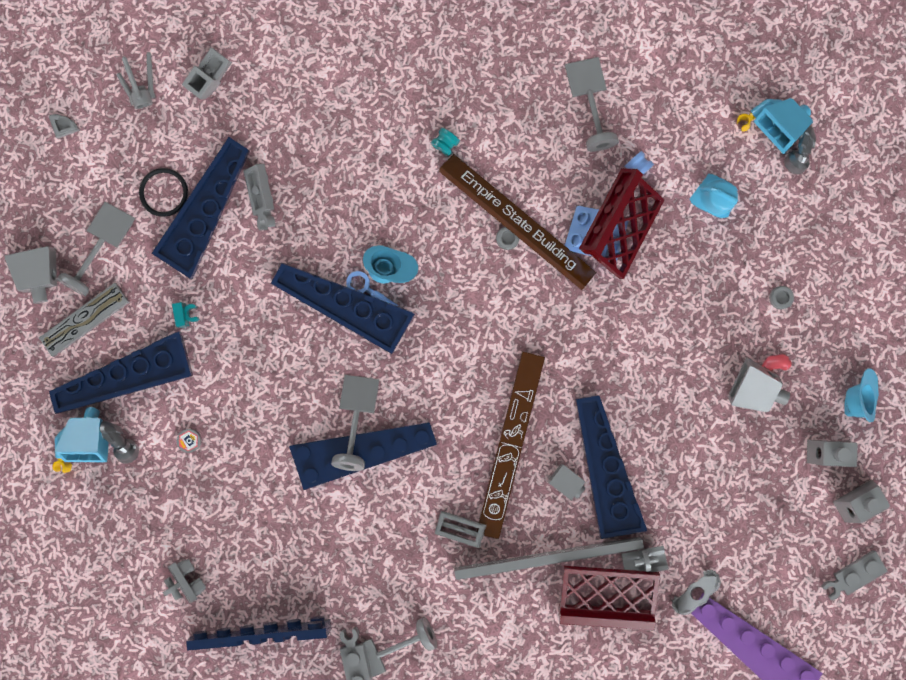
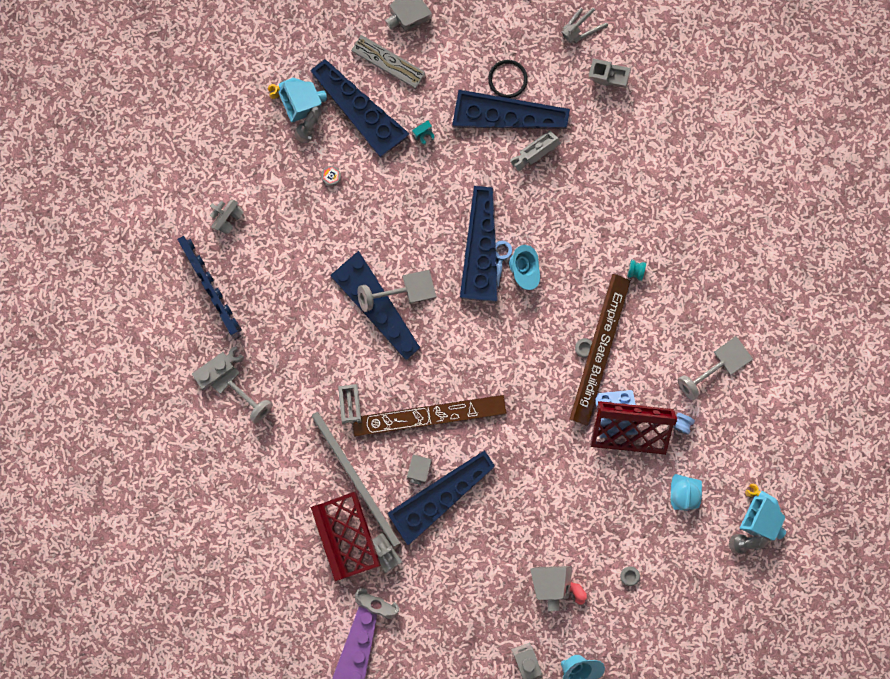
camera: 65 degrees right, 5 degrees down
(109, 226) = (465, 50): light grey piece -> none

